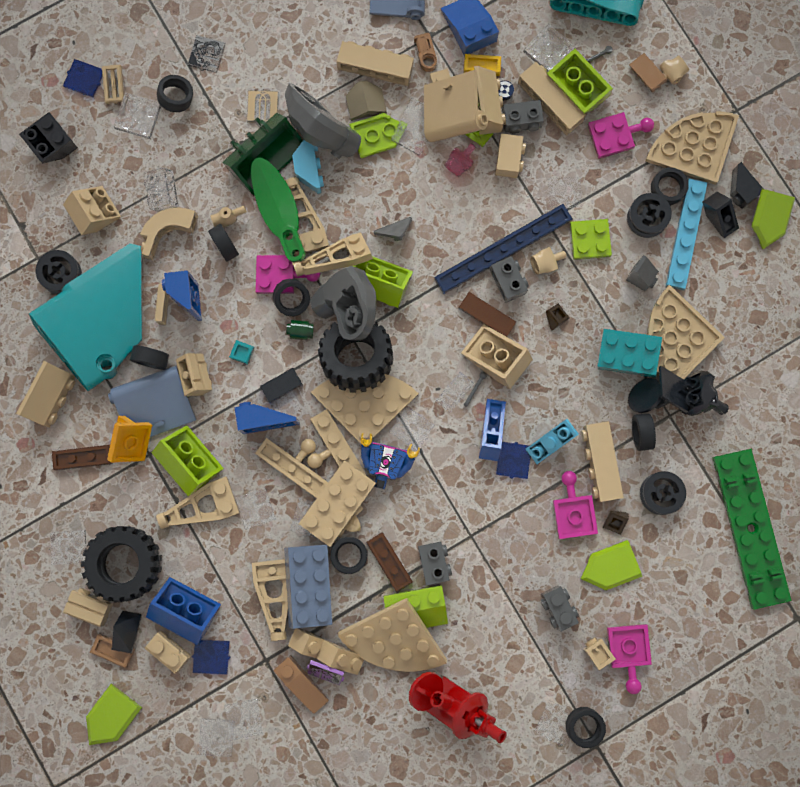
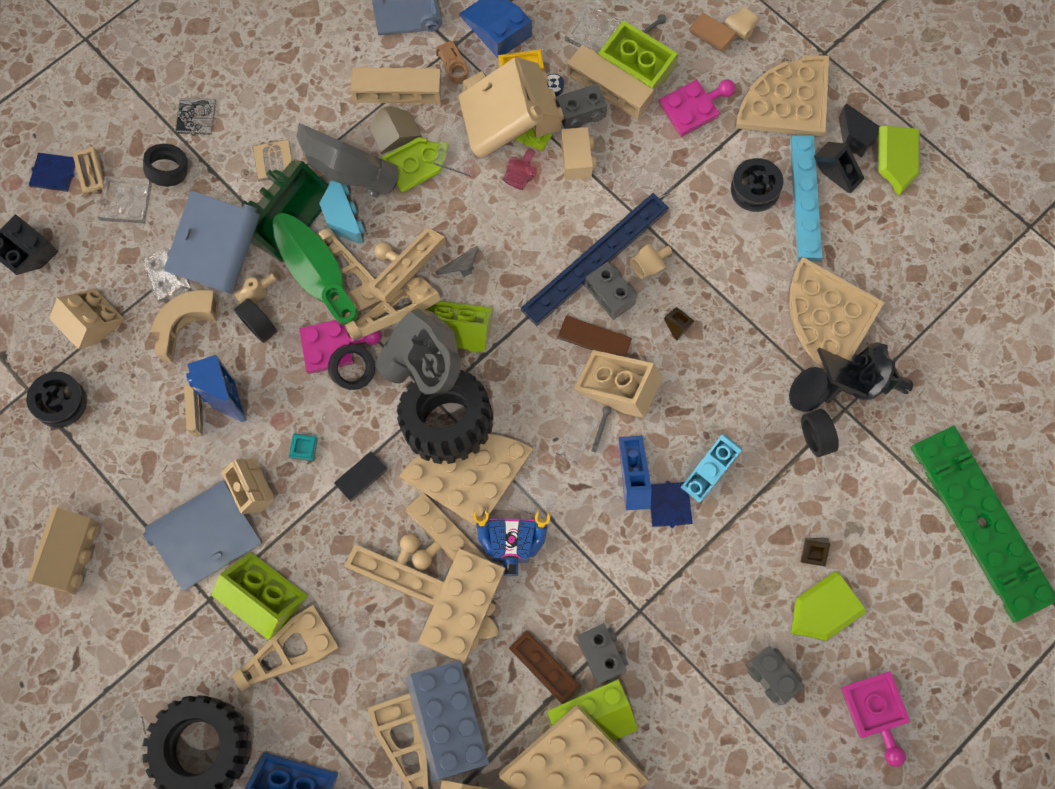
camera: 10 degrees left, 10 degrees down
(80, 457) = (122, 623): reddish brown tile -> none
(96, 317) = (111, 444): teal panel -> none
(129, 441) = (180, 585): light orange bracket -> none
(149, 357) = (188, 476): black tyre -> none
(204, 173) = (216, 242): none -> sand blue door
(255, 418) = (341, 520): blue slope -> none
(300, 330) = (370, 404): dark green brick -> none
(334, 555) = (474, 659): black tyre -> none
(349, 221) = (403, 265): none -> tan plate
(574, 514) = (761, 553): dark pink plate -> none
(590, 239) = (695, 226): lime plate -> none
(598, 653) = (840, 722): tan bracket -> none
(602, 461) = (779, 481): tan brick -> none
(629, 353) = (778, 343): teal brick -> none
(643, 274) = (768, 250): dark grey slope -> none
(648, 488) = (877, 497): black wheel -> none
(679, 176) = (776, 134): black tyre -> none

